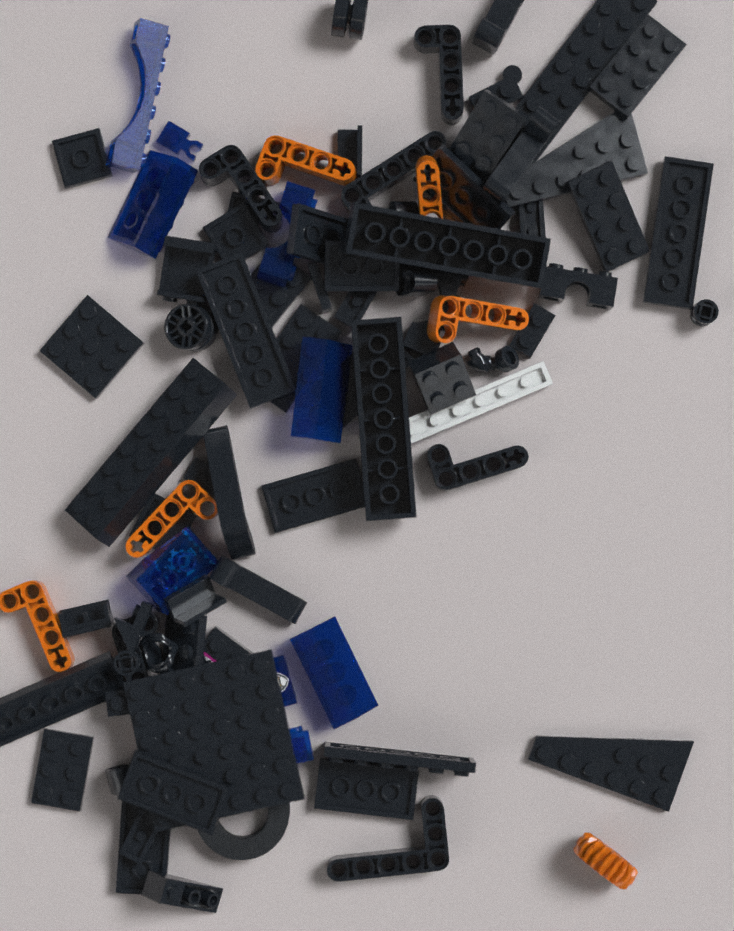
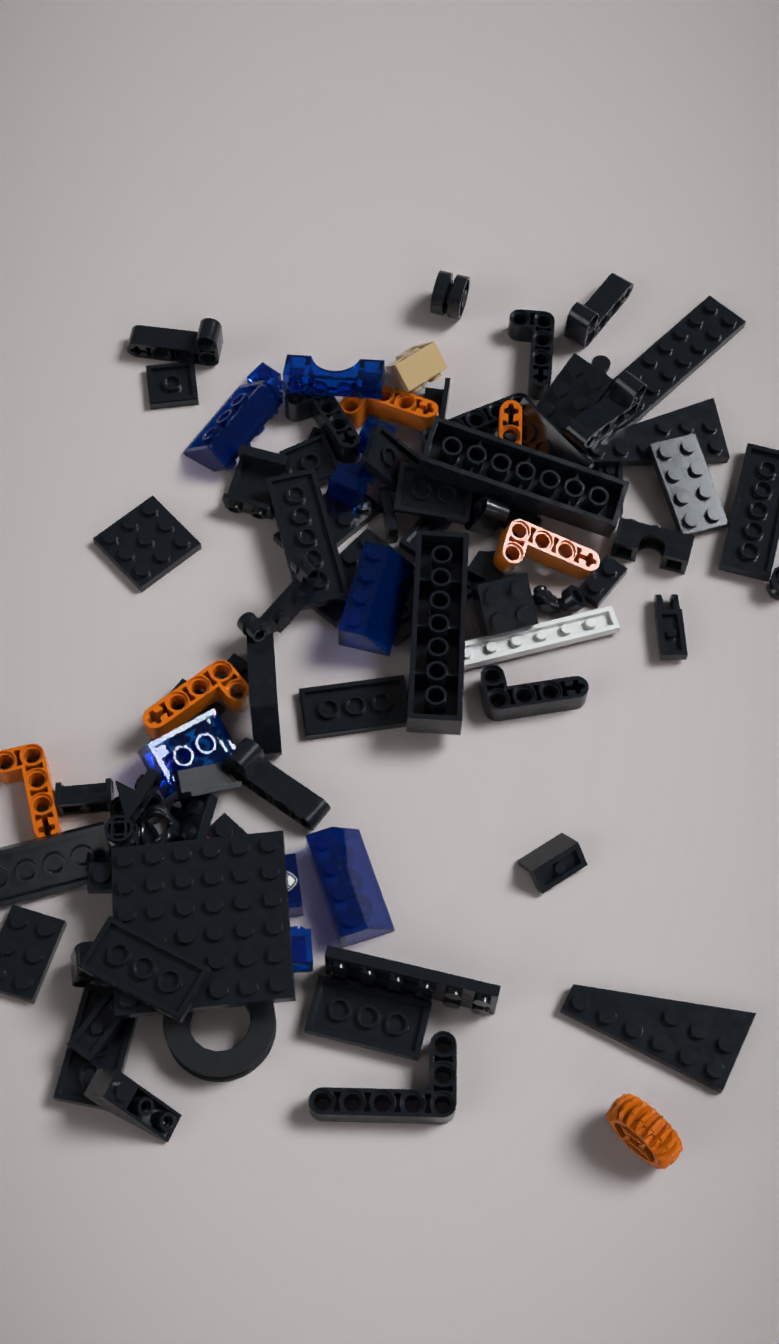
camera: 10 degrees right, 25 degrees down
(78, 112) = (178, 345): none -> black beam
(148, 47) = (220, 371): clear blue arch -> none
(150, 452) = (184, 638): black brick -> none
(179, 330) = (251, 530): black wheel -> none
(238, 415) = (287, 605): none -> black plate
(276, 146) = (359, 381): none -> clear blue arch
(327, 117) = (416, 366): none -> tan brick
(509, 625) = (553, 862): none -> black panel
(600, 376) = (670, 629): none -> black hinge
(637, 67) = (723, 370): black plate -> none

